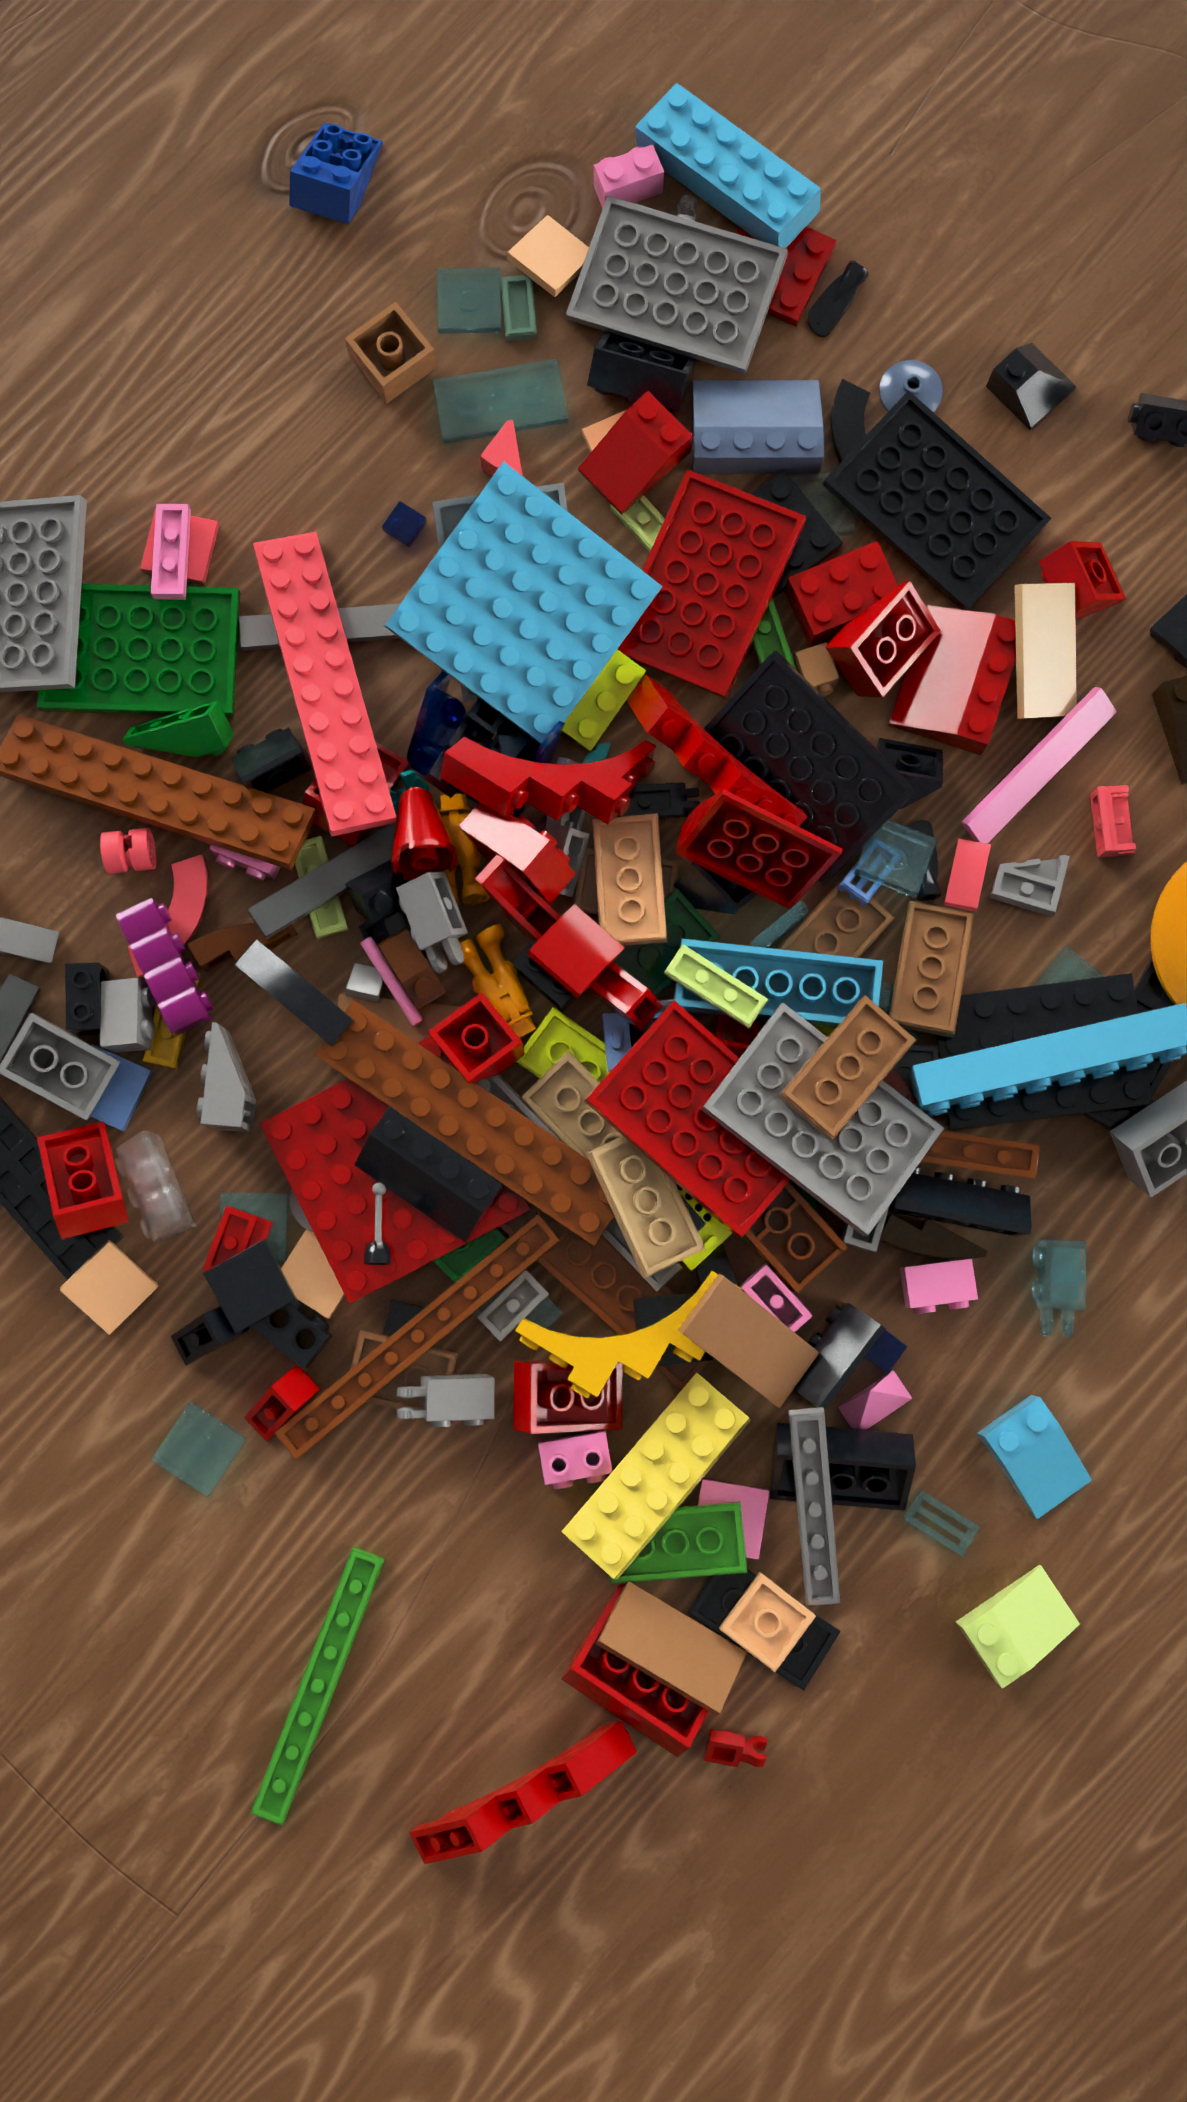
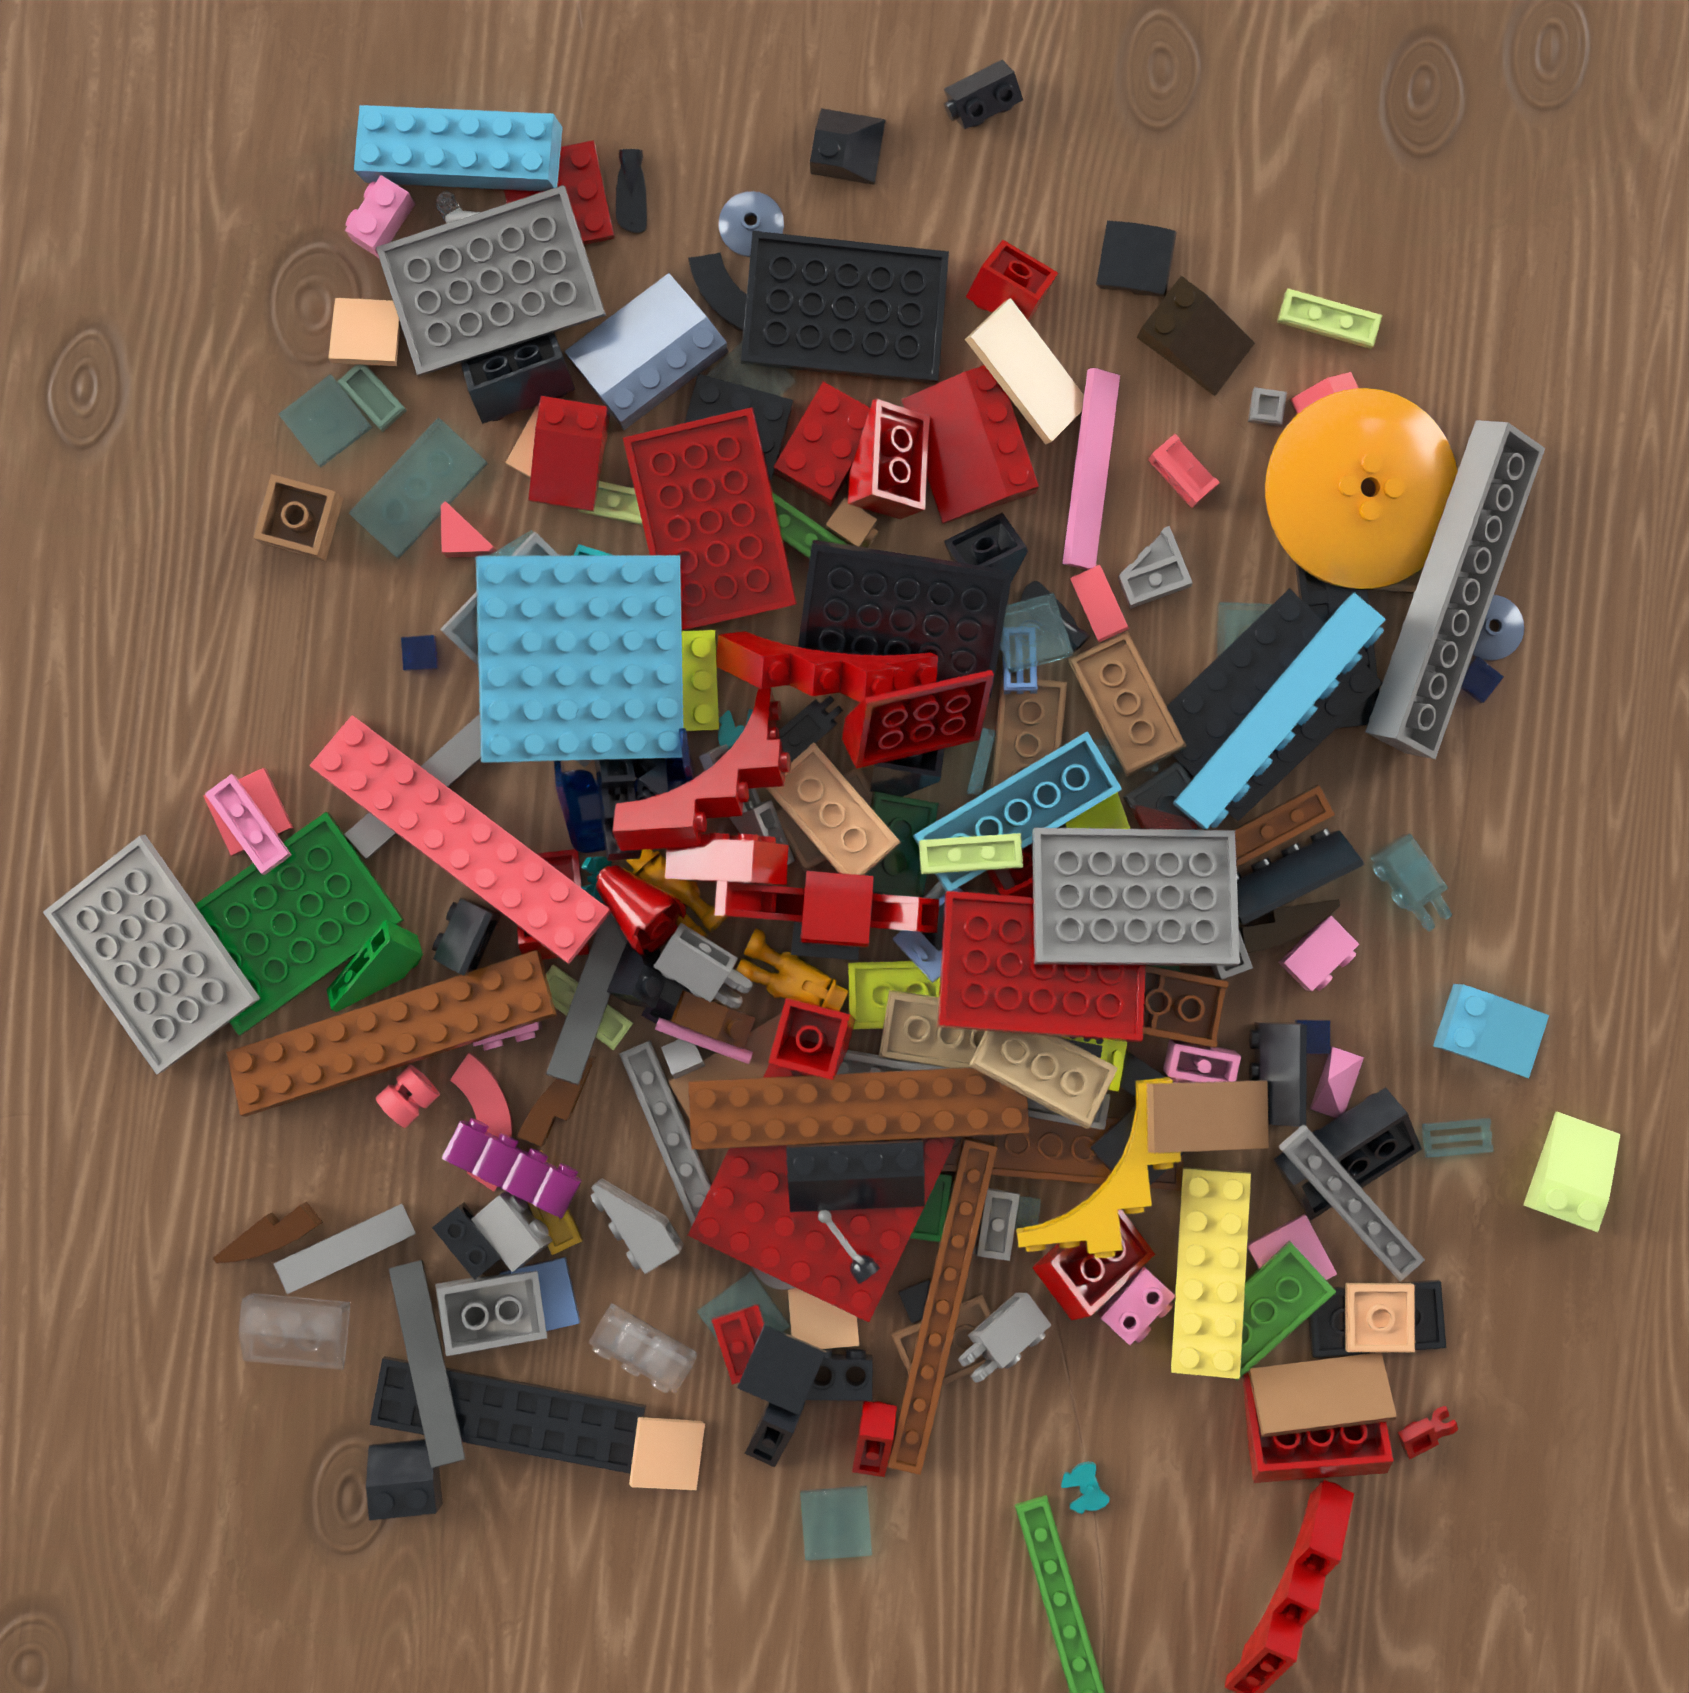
camera: 40 degrees left, 5 degrees up
(82, 1180) = (581, 1387): red slope -> none
(294, 993) = (636, 1112): black slope -> none
(301, 1064) = (667, 1126): none -> light grey tile
(334, 172) = (126, 394): blue slope -> none
(427, 1567) = (1084, 1476): none -> teal piece
(847, 1068) = (1124, 842): medium nougat tile -> none

